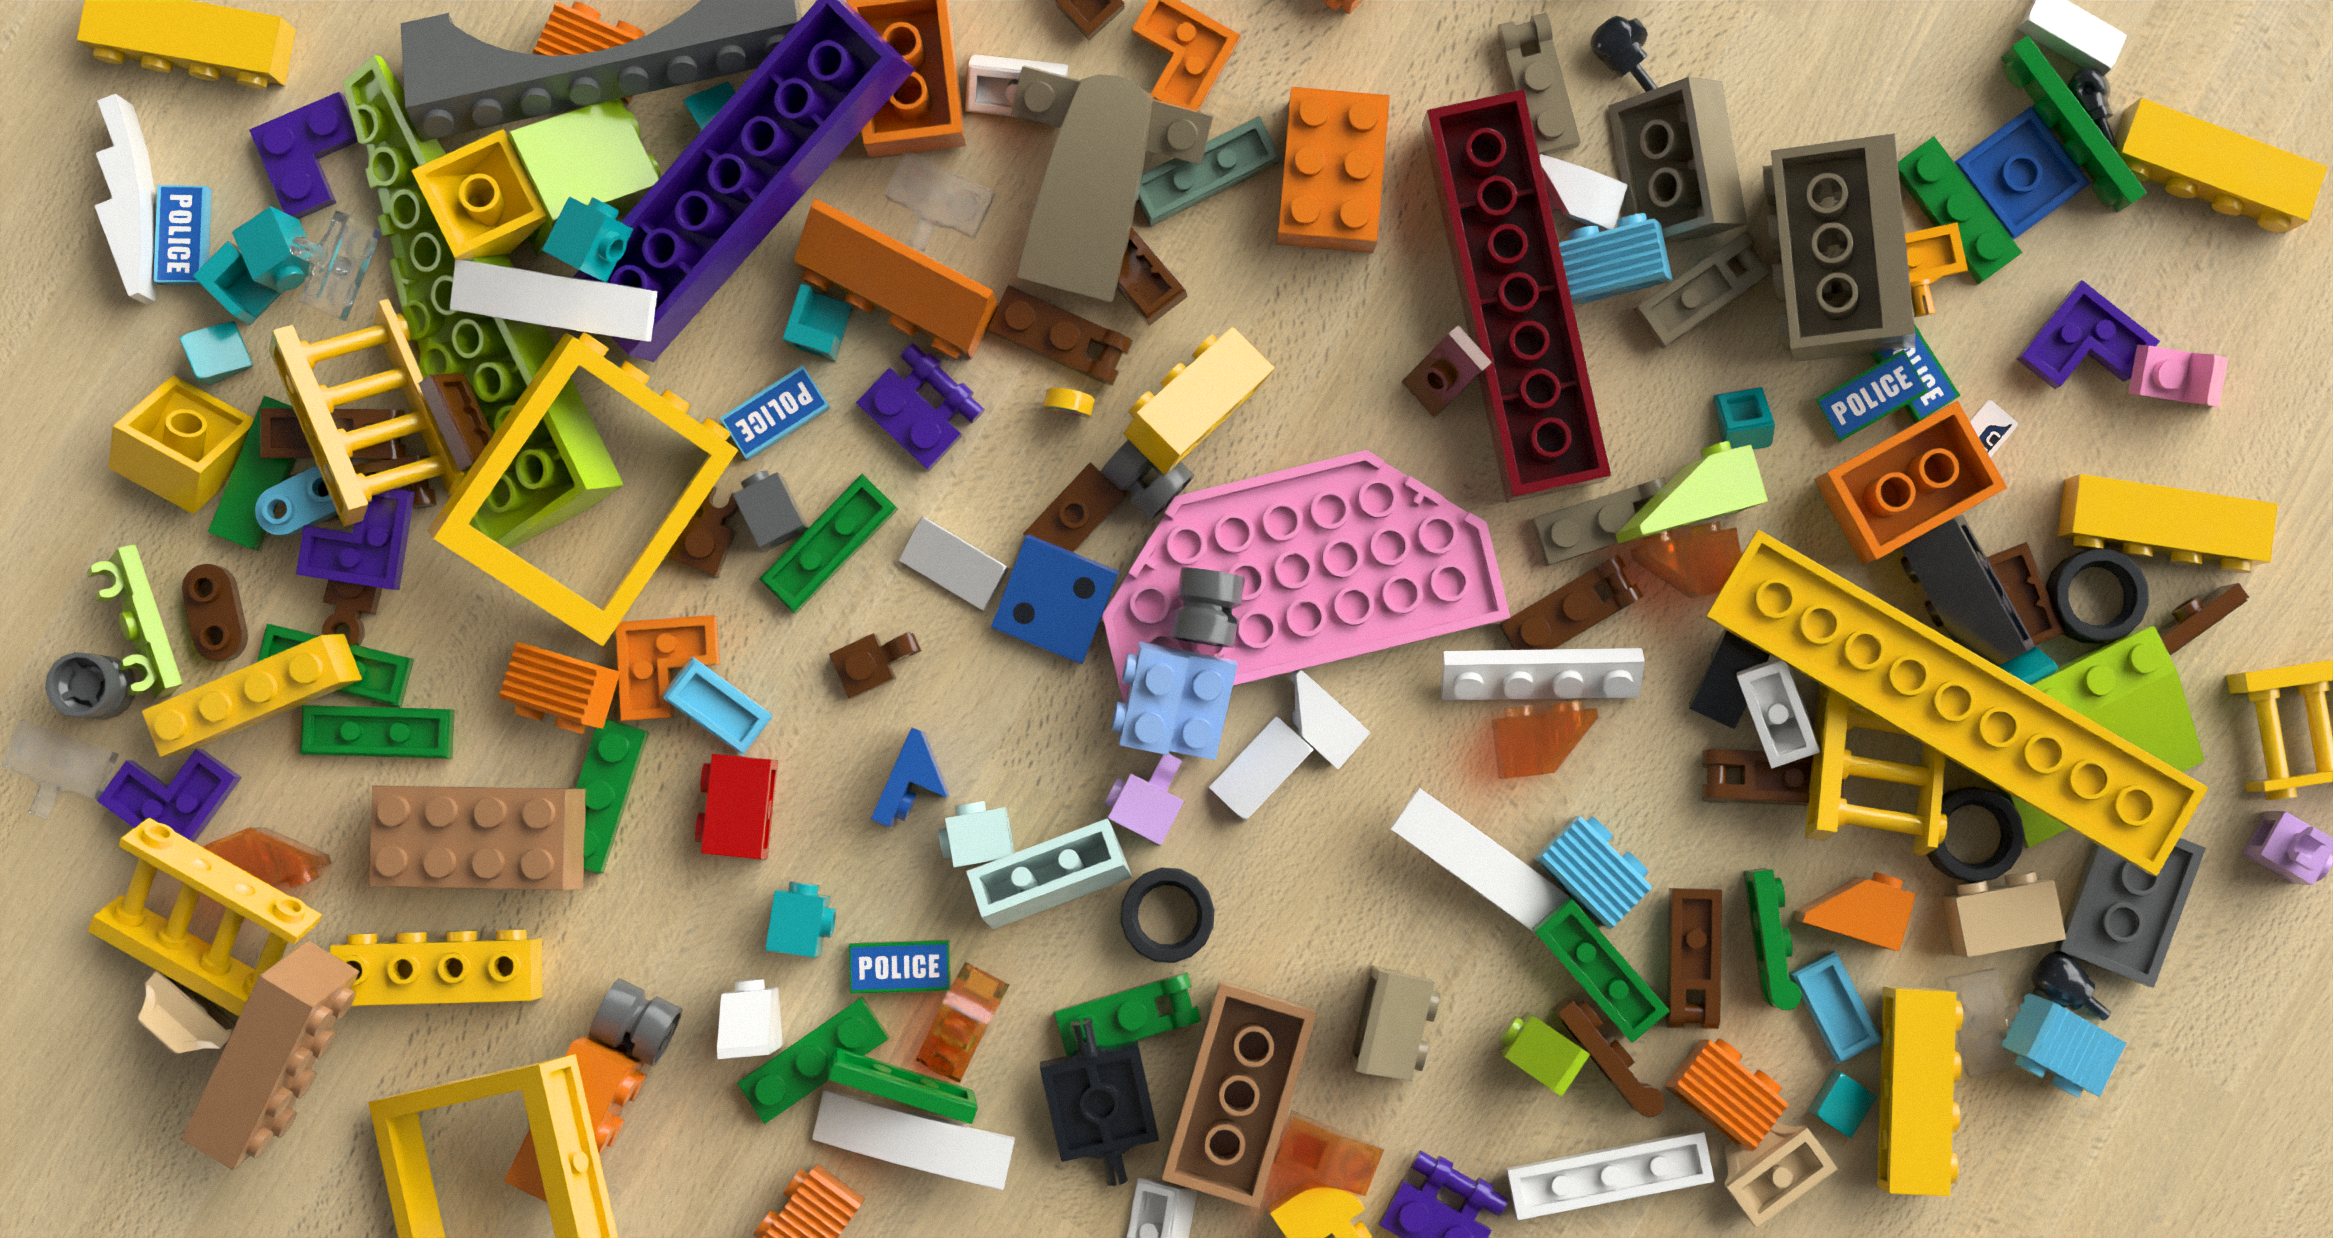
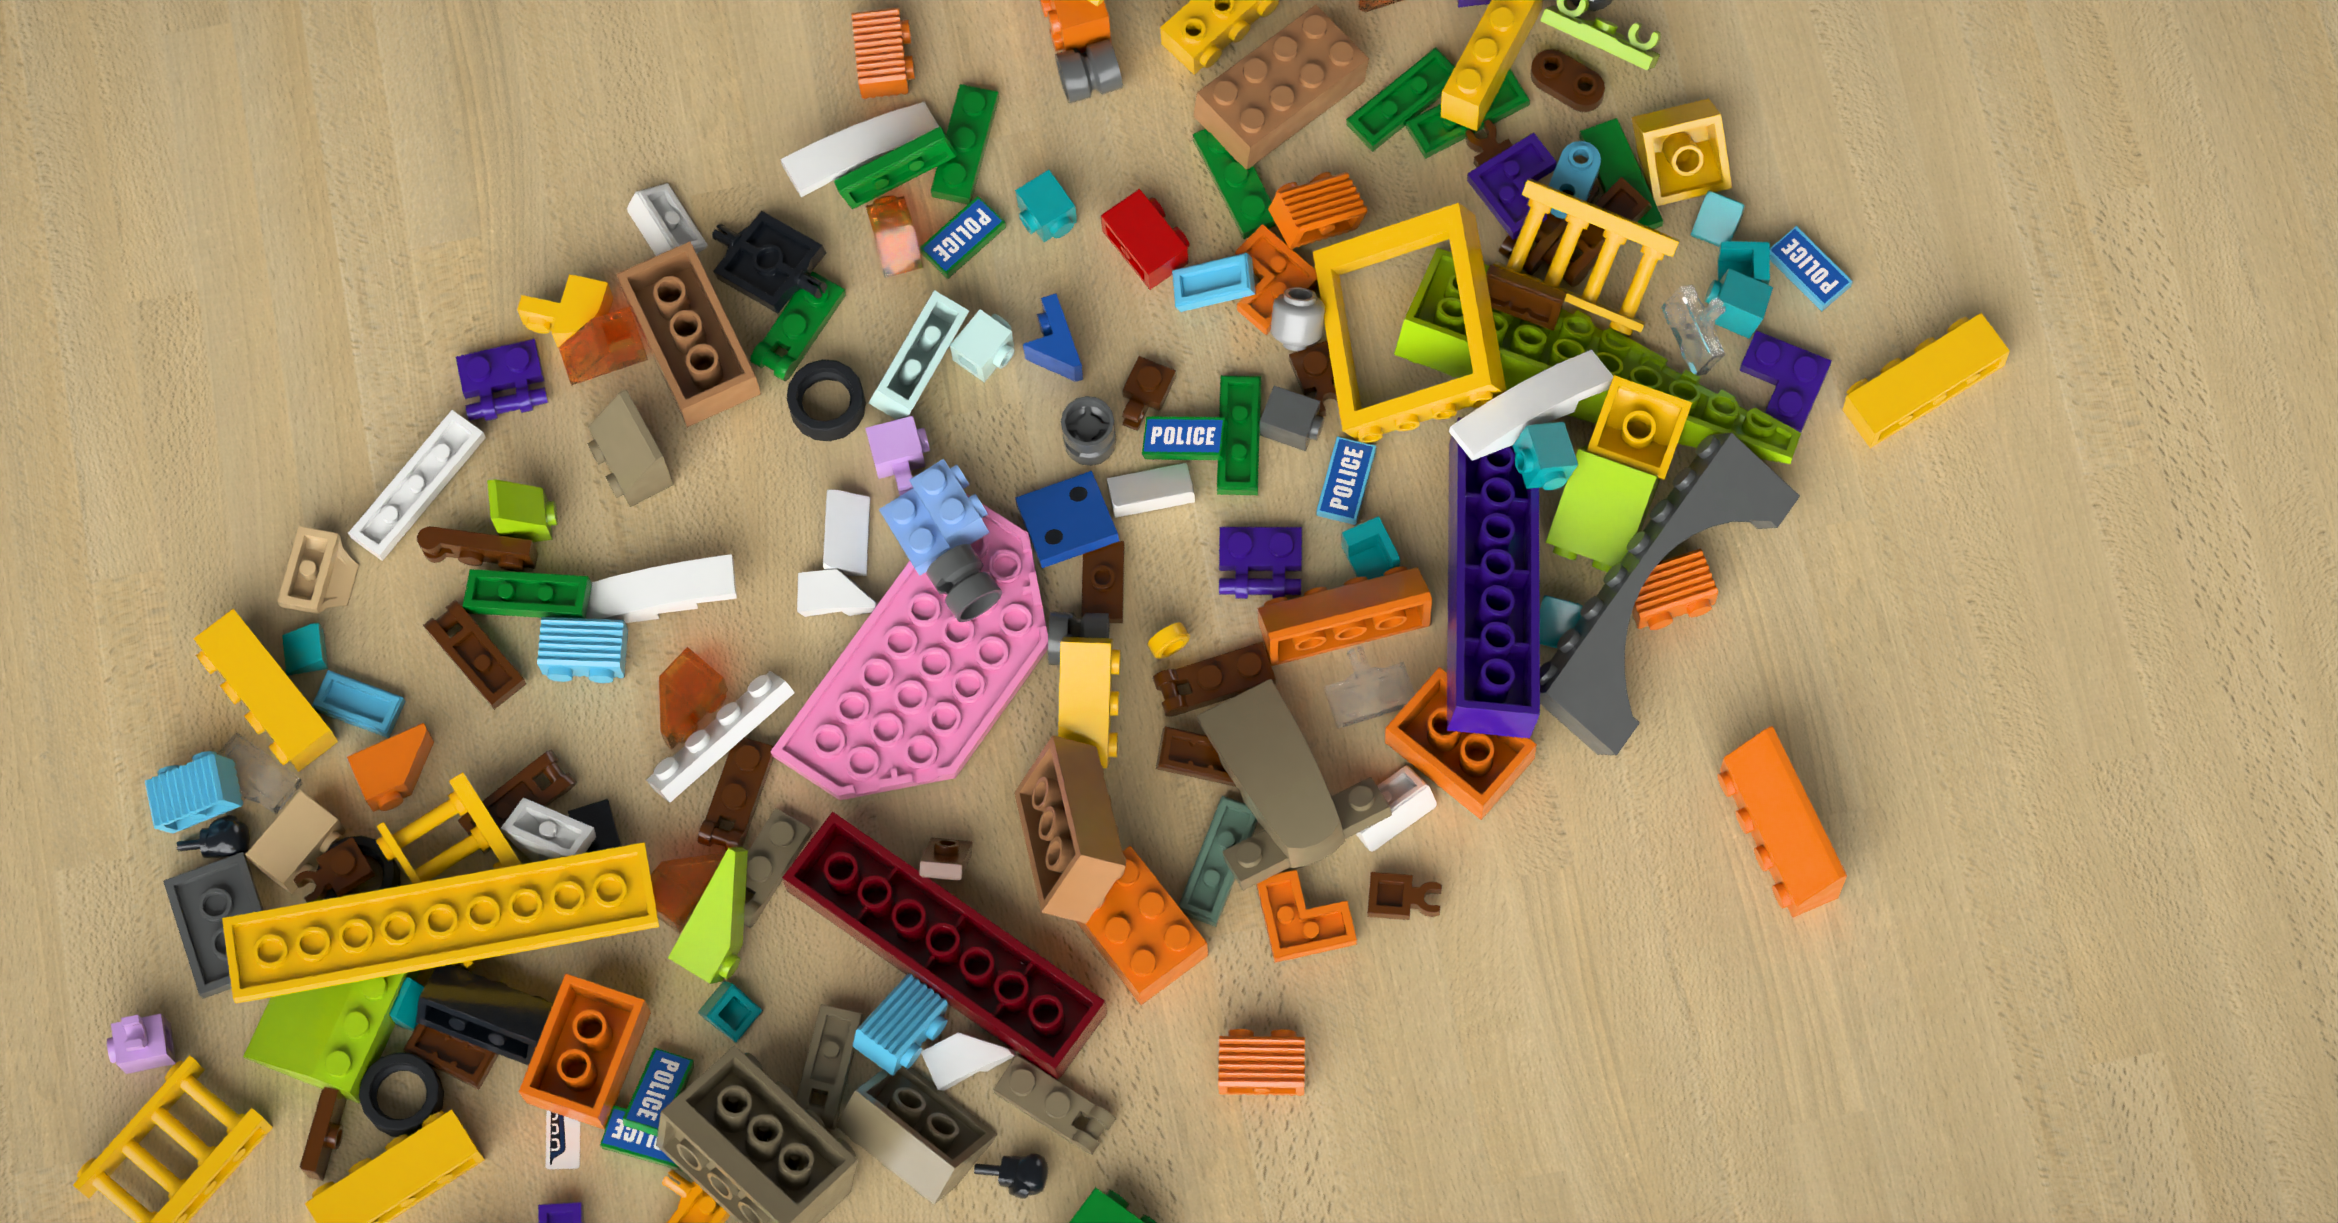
camera: 140 degrees right, 15 degrees down
(131, 212) = (1869, 267): white slope -> none
(677, 593) = (1297, 318): none -> light grey head
(749, 1020) = (1020, 124): white slope -> none
(880, 580) = (1184, 438): none -> tile
(961, 661) = (1088, 431): none -> dark grey wheel
(1325, 278) = (1069, 829): none -> medium nougat brick
(1727, 1093) = (384, 590): orange brick -> none
(1770, 939) = (434, 703): green plate -> none
(1994, 846) = (341, 869): none -> reddish brown plate

